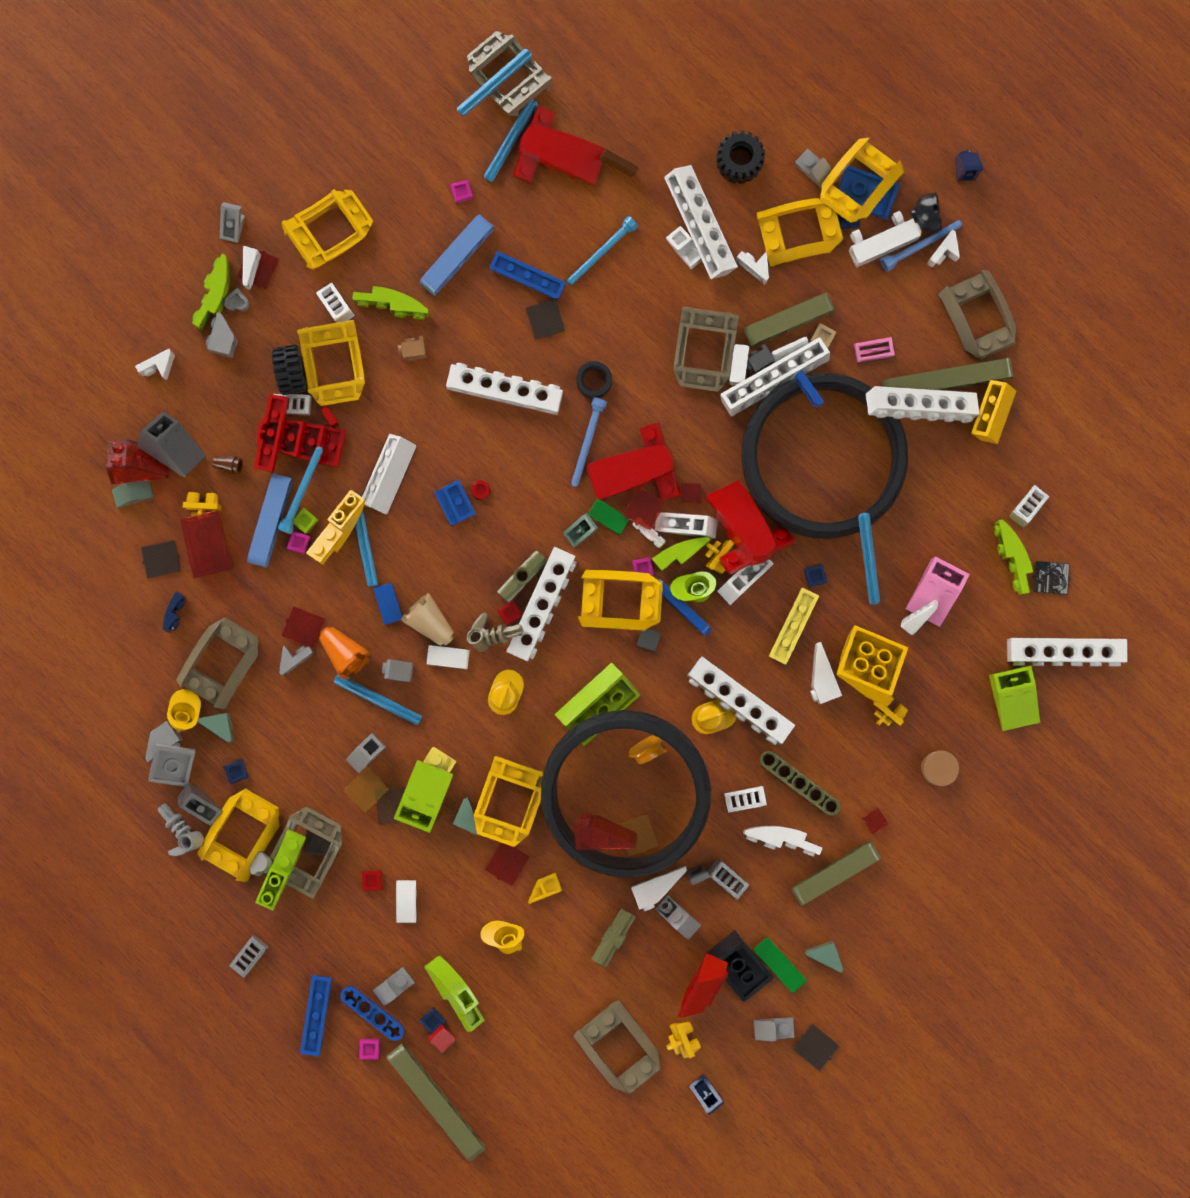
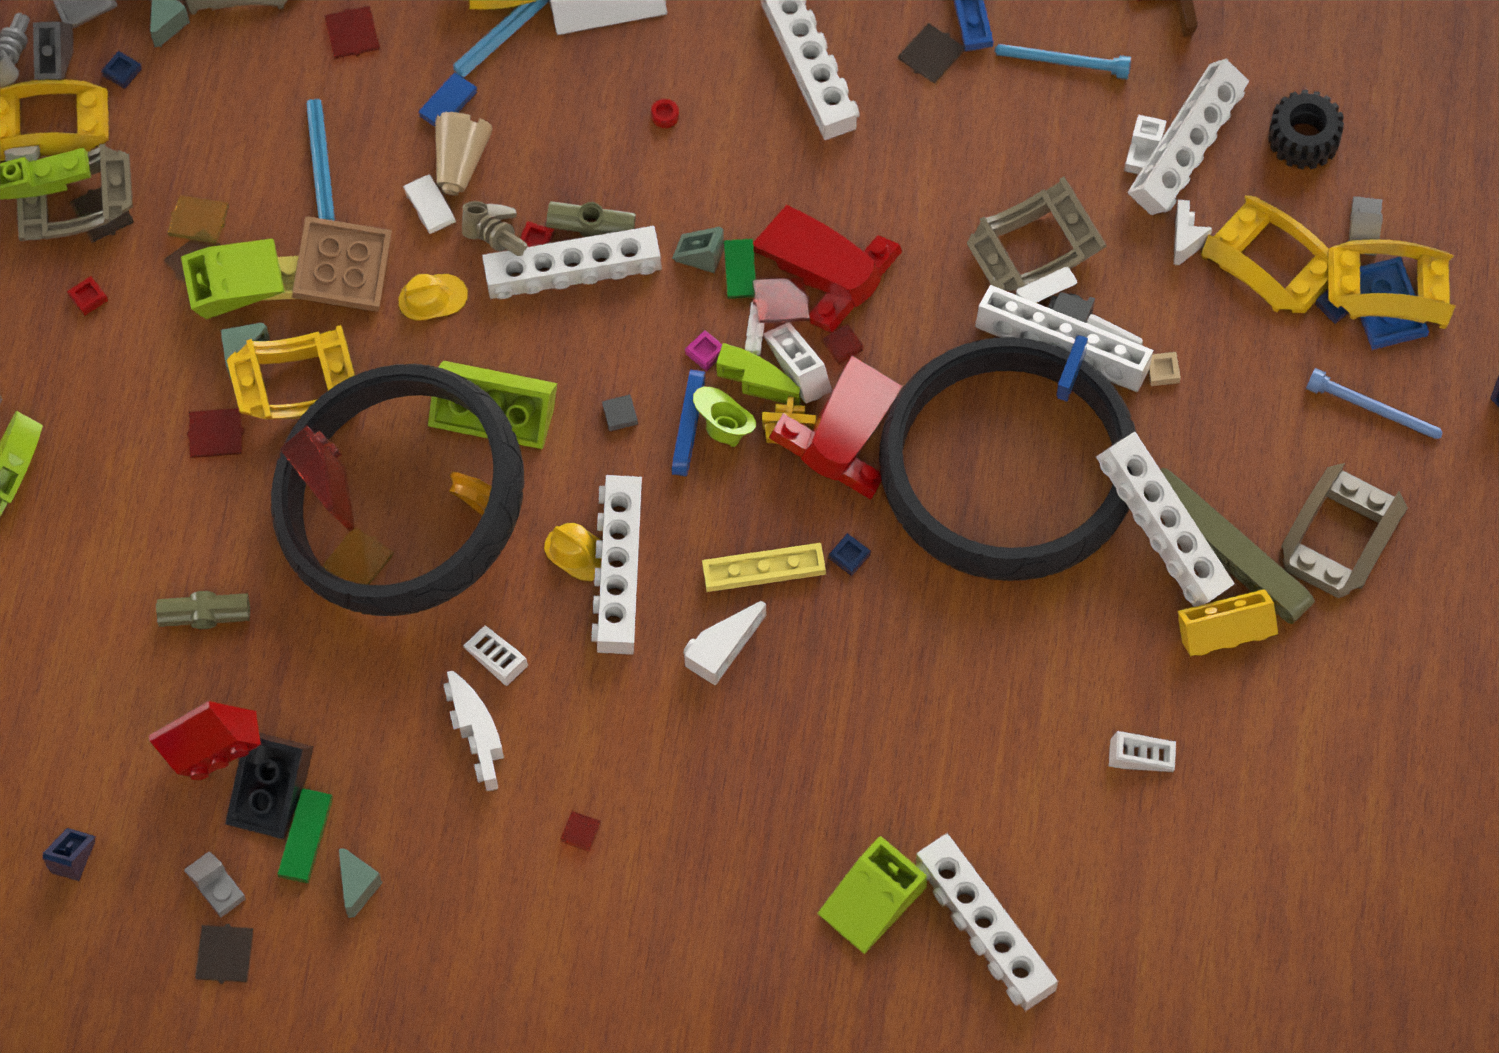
camera: 60 degrees right, 20 degrees down
(290, 662) = (299, 41): light grey slope -> none
(343, 652) = (349, 88): orange cone -> none
(366, 752) = (246, 186): light grey slope -> none
(398, 670) = (370, 154): light grey slope -> none
(406, 901) = (88, 344): white slope -> none
(454, 730) = (341, 264): none -> medium nougat plate
(455, 503) = (626, 93): blue plate -> none
(503, 935) = (116, 481): yellow piece -> none
(545, 887) = (213, 494): yellow tile -> none
(593, 600) = (626, 314): yellow wedge -> none
(597, 407) = (869, 172): medium blue piece -> none
(599, 366) = (901, 128): black tyre -> none
(603, 1025) = (76, 670): dark tan wedge -> none
(652, 890) = (302, 619): white slope -> none
(678, 917) = (282, 669): light grey slope -> none
(680, 1042) = (117, 789): yellow hips -> none
(698, 874) = (355, 656): dark grey tile -> none
(713, 870) = (375, 675): light grey slope -> none
(742, 581) = (779, 469): white slope -> none
(789, 319) = (1151, 314): olive beam -> none
(808, 786) = (563, 716): olive beam -> none
(835, 873) = (475, 823): olive beam -> none
(858, 353) = (1189, 448): bright pink tile -> none
(869, 558) = (916, 589): dark azure axle -> none
(871, 664) = (780, 679): yellow slope -> none
(885, 242) = (1339, 359): white brick -> none
(897, 715) = (735, 753): yellow hips -> none
(919, 617) = (885, 705): white slope -> none
(927, 212) = (1419, 382): black cylinder -> none
(940, 583) = (940, 706): bright pink slope -> none
(940, 768) = (709, 864): medium nougat head -> none
(948, 247) = (1393, 432): white slope -> none
(1012, 547) = (1066, 767): lime slope -> none
(1051, 577) = (1070, 845): piece -> none

